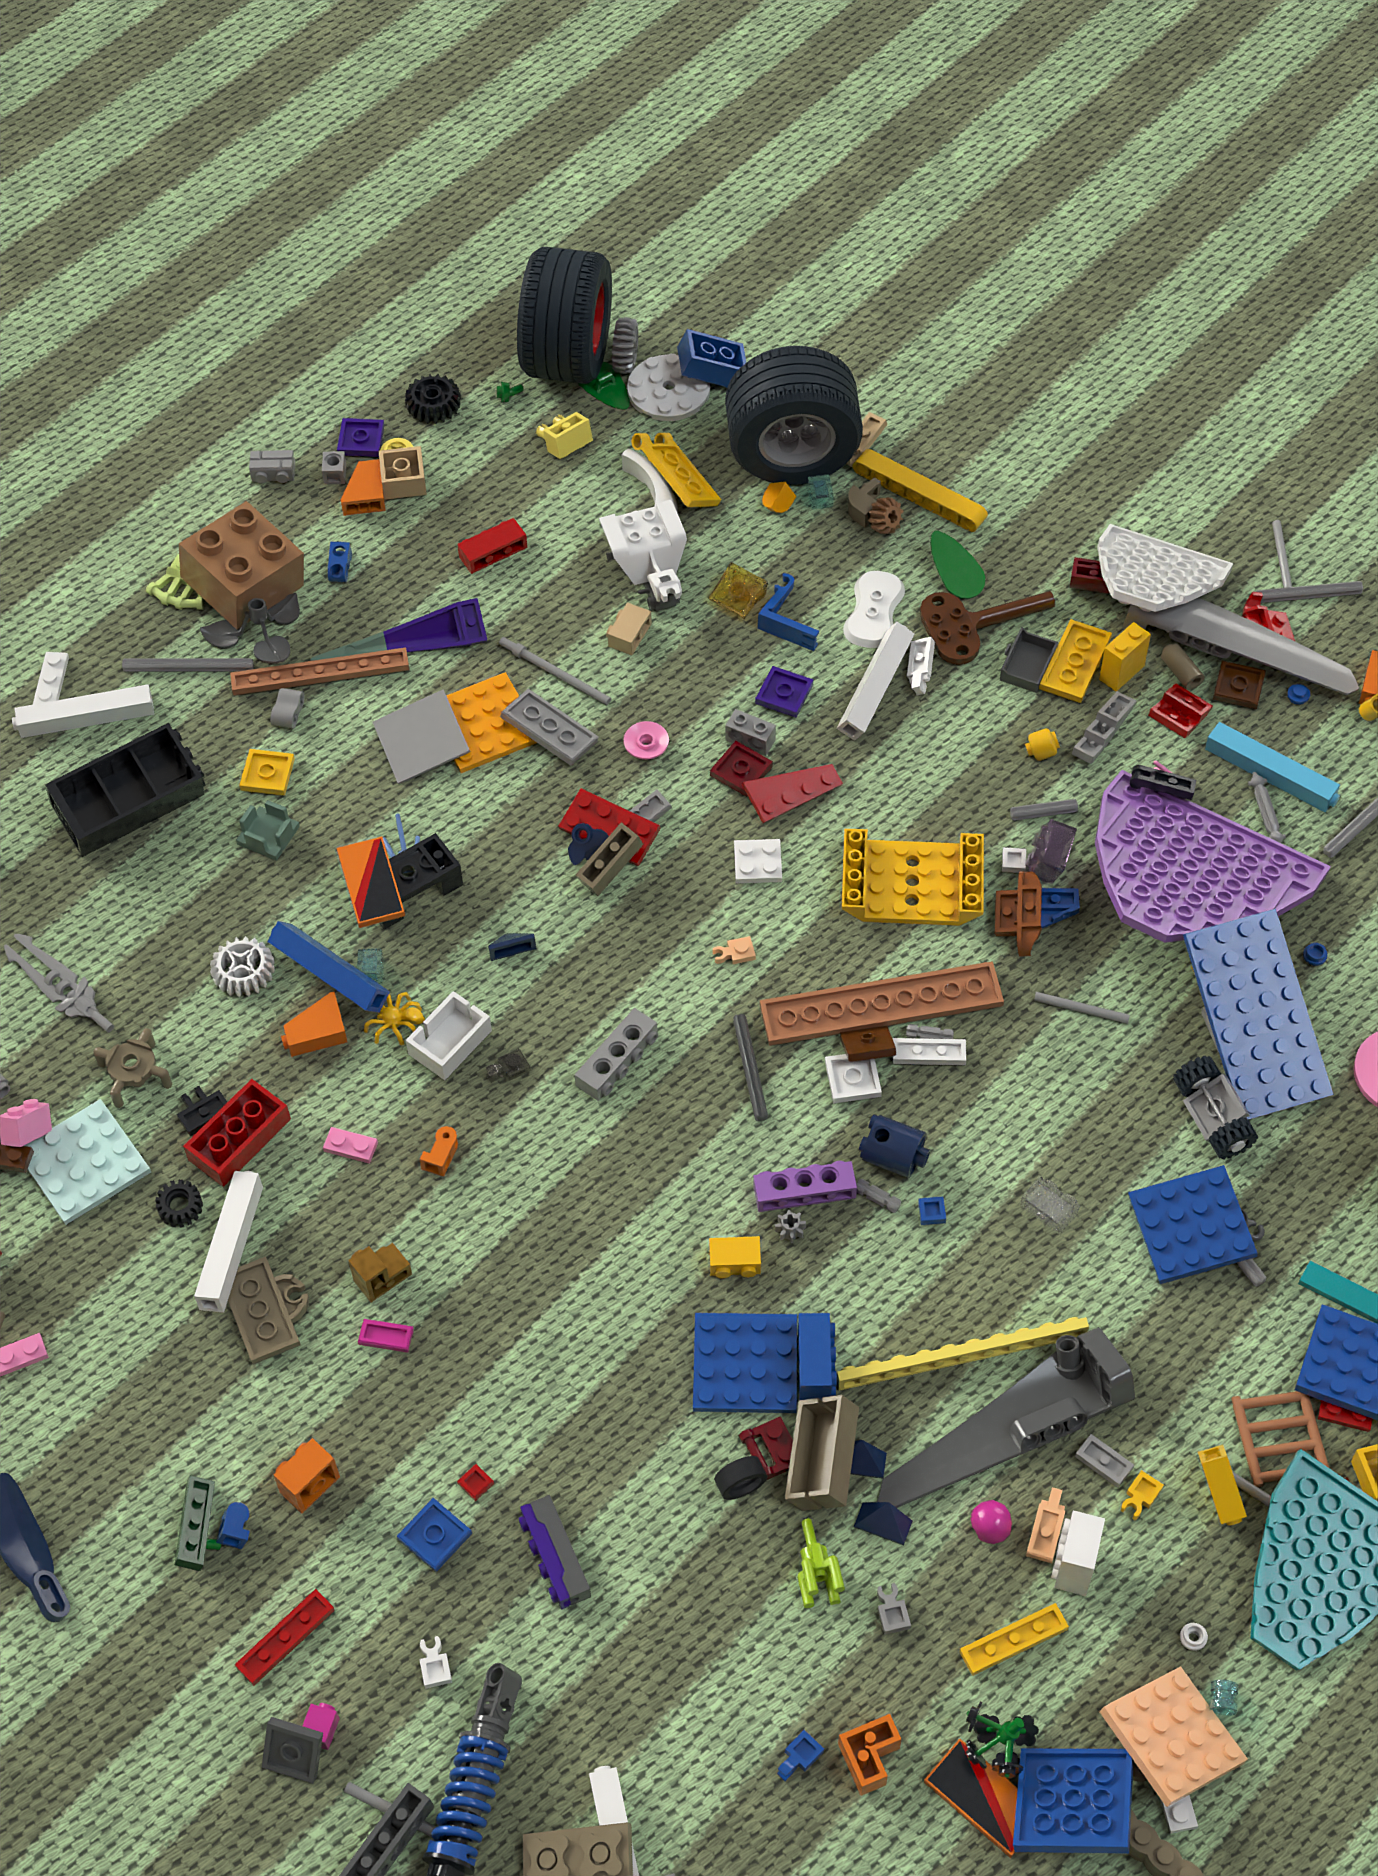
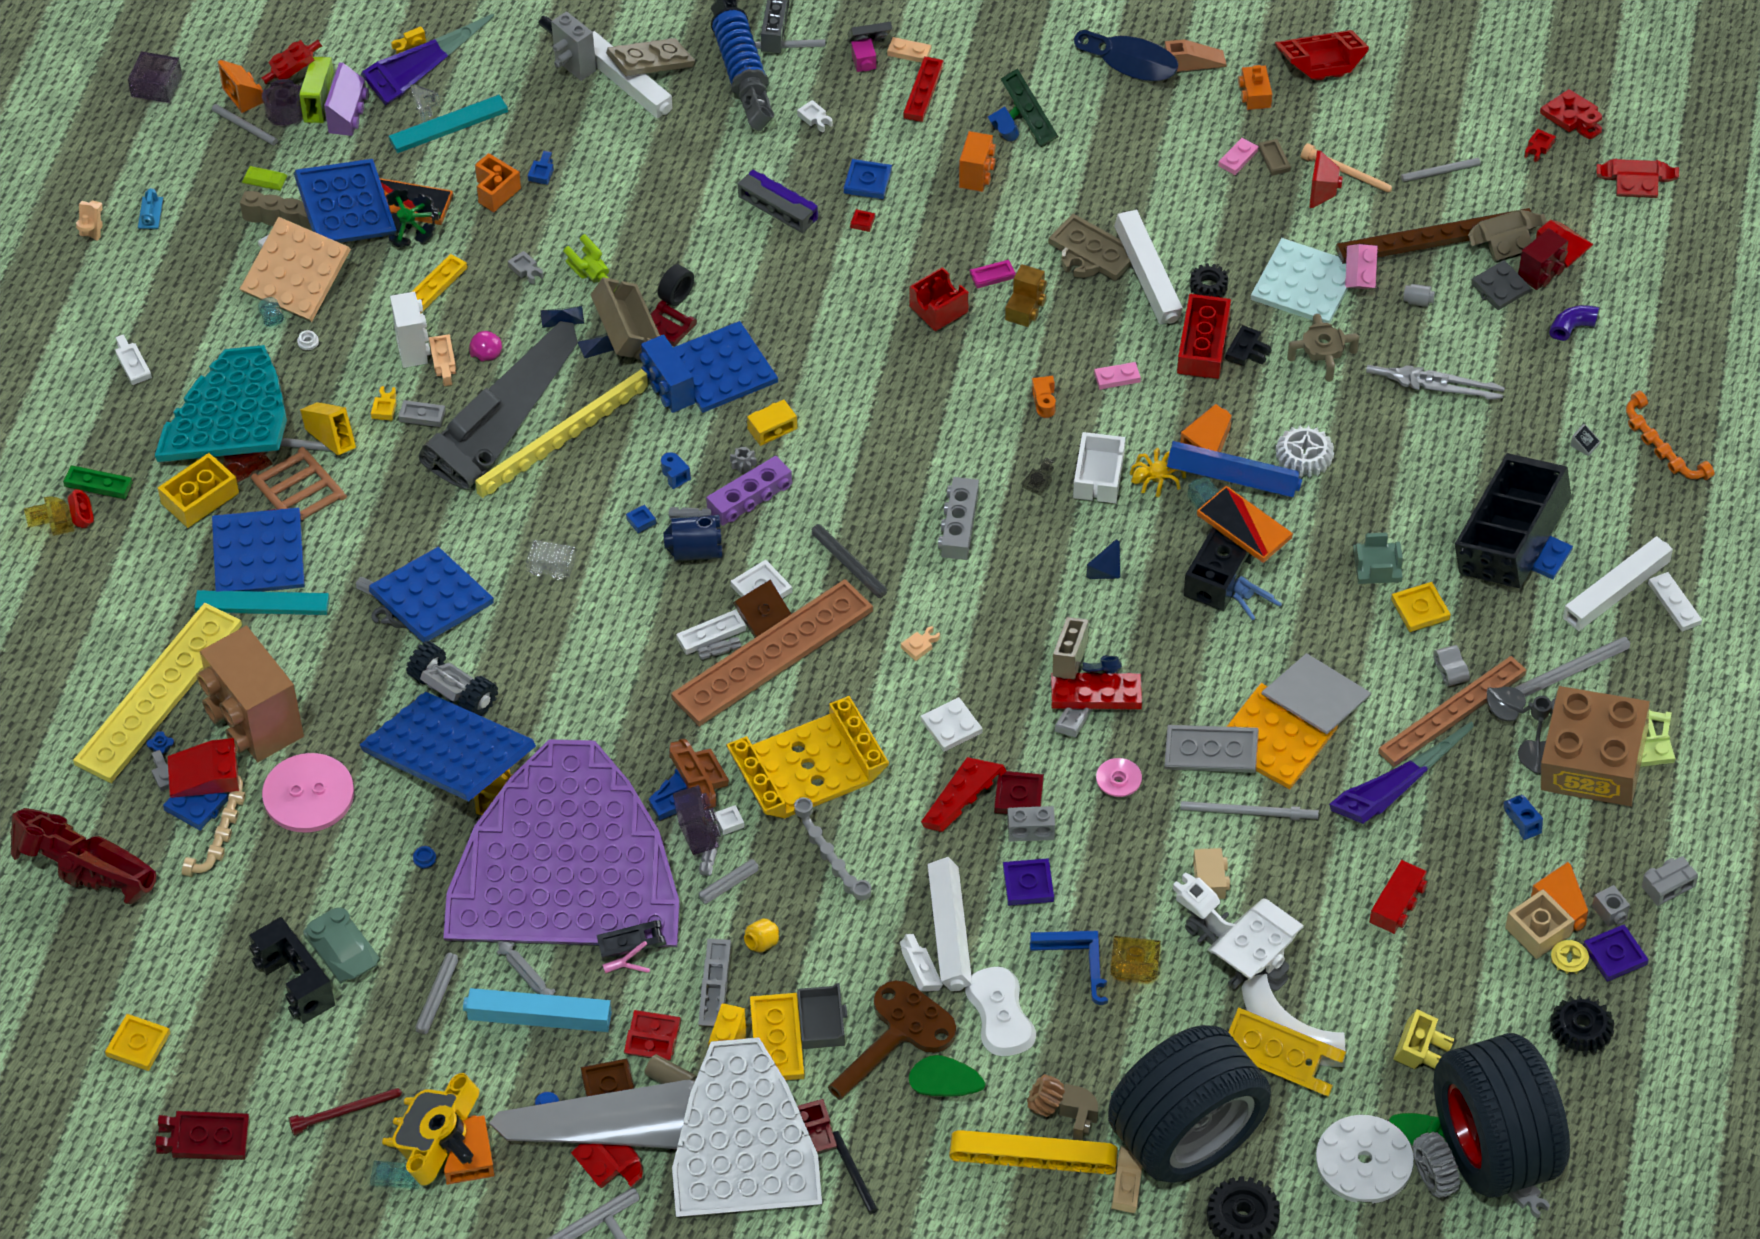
camera: 150 degrees right, 5 degrees down
(254, 1710) = (908, 49): none -> light nougat plate
(471, 1309) = (938, 300): none -> red piece
(709, 357) = (1333, 1184): blue brick -> none
(866, 1250) = (675, 469): none -> blue leg
(945, 819) = (859, 889): none -> light grey bar
(1069, 540) = (854, 1173): none -> black bar
(1081, 1007) = (604, 726): light grey bar -> none

